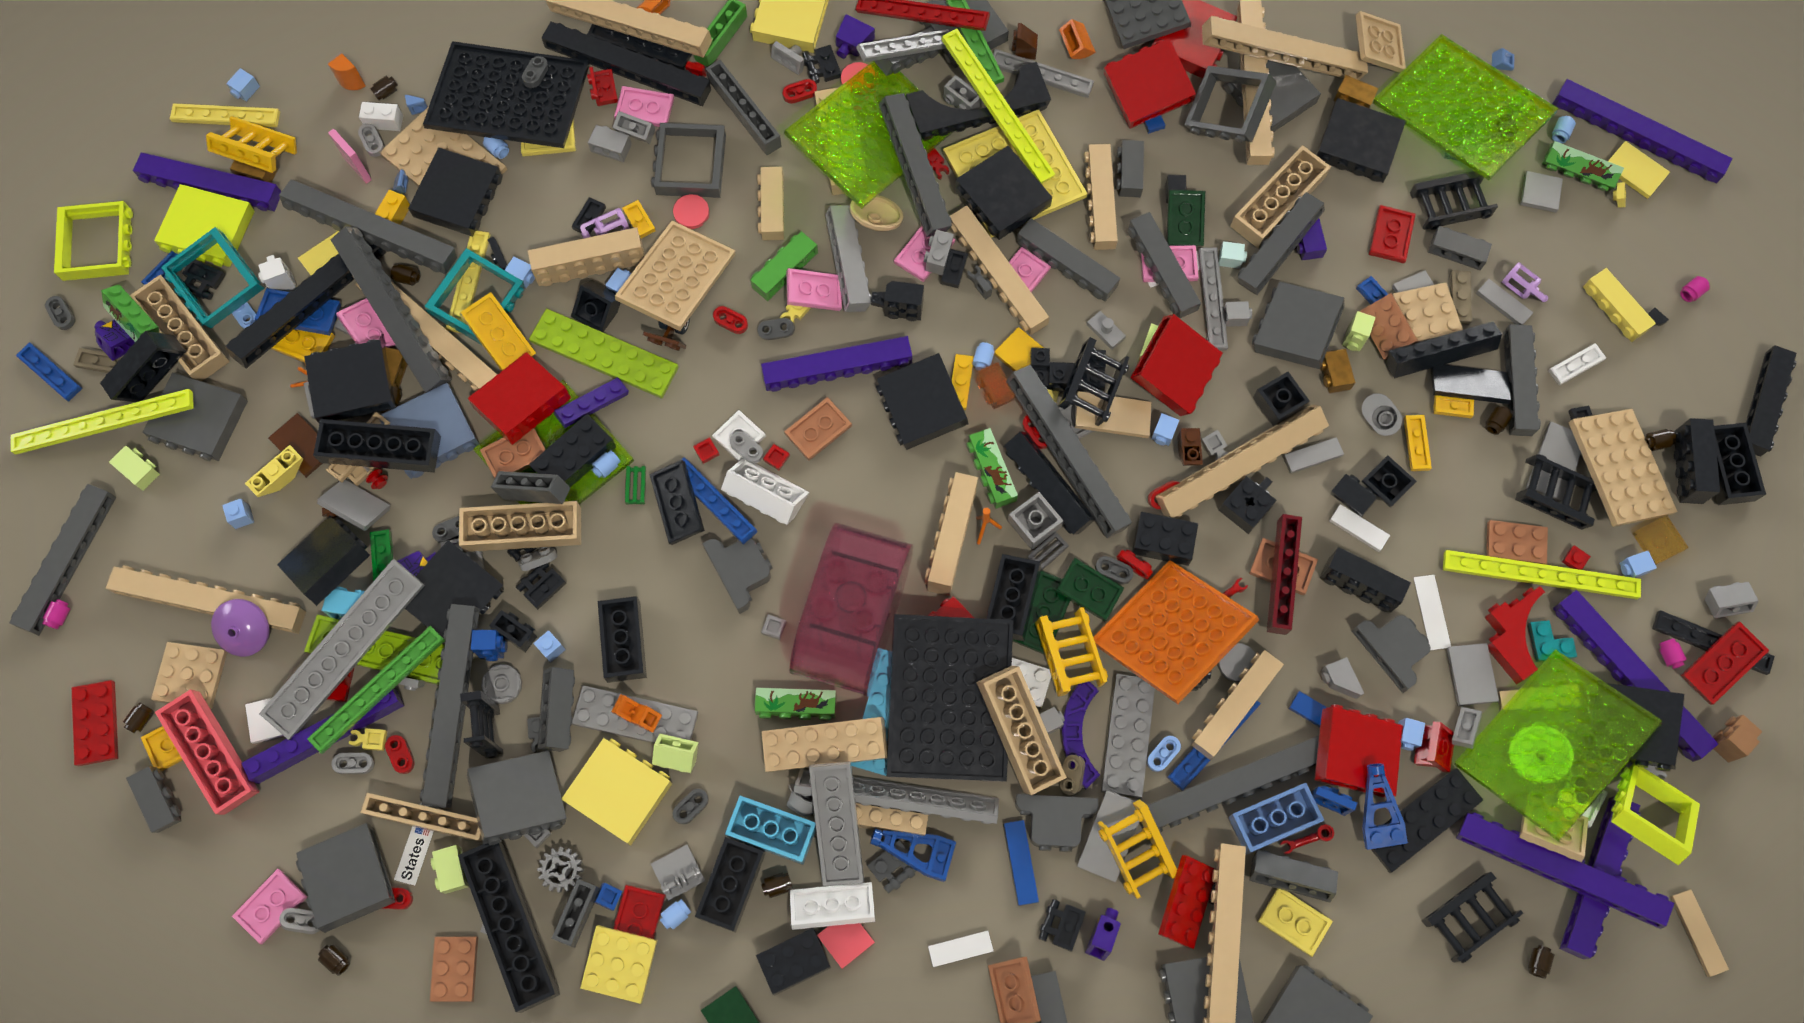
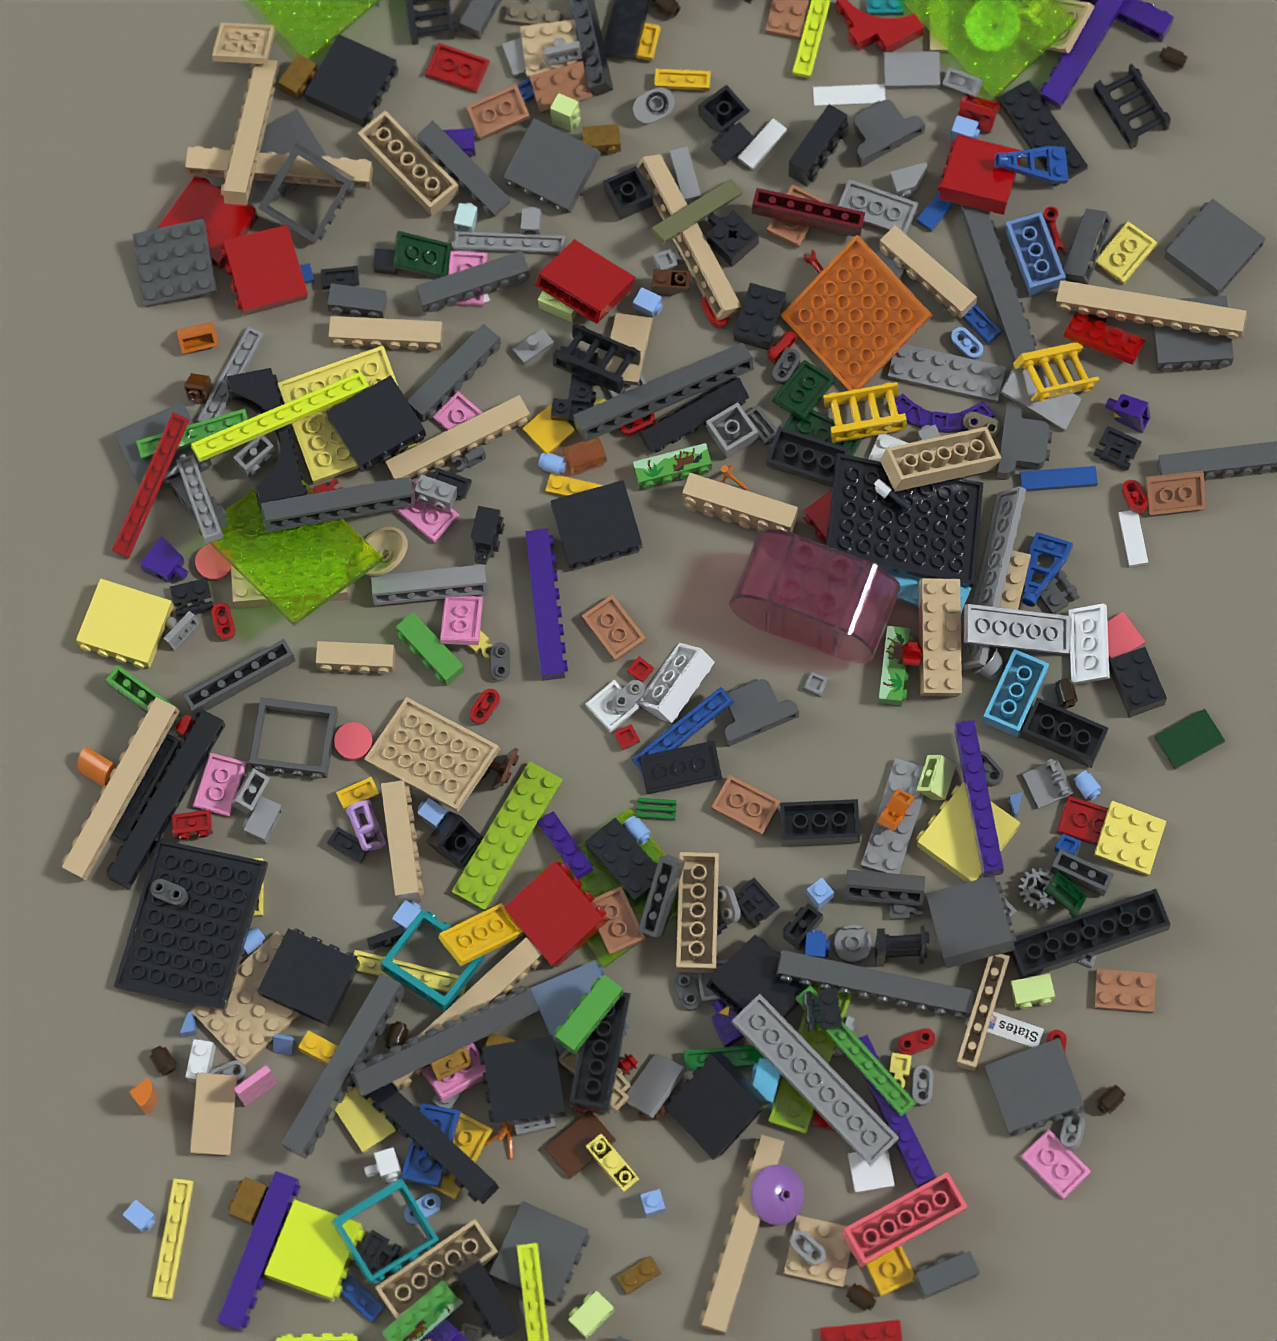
camera: 80 degrees left, 0 degrees up
(173, 508) = (638, 1275): none -> pearl gold plate
(183, 659) = (808, 1248): none -> light grey plate
(248, 154) = (235, 1204): yellow fence -> none
(314, 128) = (213, 1113): none -> tan tile
(369, 318) = (450, 1064): none -> pearl gold plate
(402, 426) = (589, 1014): none -> bright green brick
(417, 657) = (829, 1009): none -> black plate
(553, 897) = (1066, 893): none -> dark green plate
(641, 568) = (746, 805): none -> nougat plate
(645, 795) = (978, 798): none -> dark purple brick
(651, 837) = (1014, 803): none -> medium blue slope
(801, 715) = (911, 654): none -> red piece
(976, 672) = (884, 490): none -> piece
(1005, 947) = (1136, 498): none -> red plate
(1154, 152) = (342, 276): none -> black plate
(1269, 464) = (696, 211): none -> olive tile
(1305, 649) = (880, 207): none -> light grey plate
(1330, 799) = (1020, 206): blue hinge -> none
(1349, 272) = (498, 112): none -> nougat plate
(1422, 319) = (562, 52): none -> light grey tile

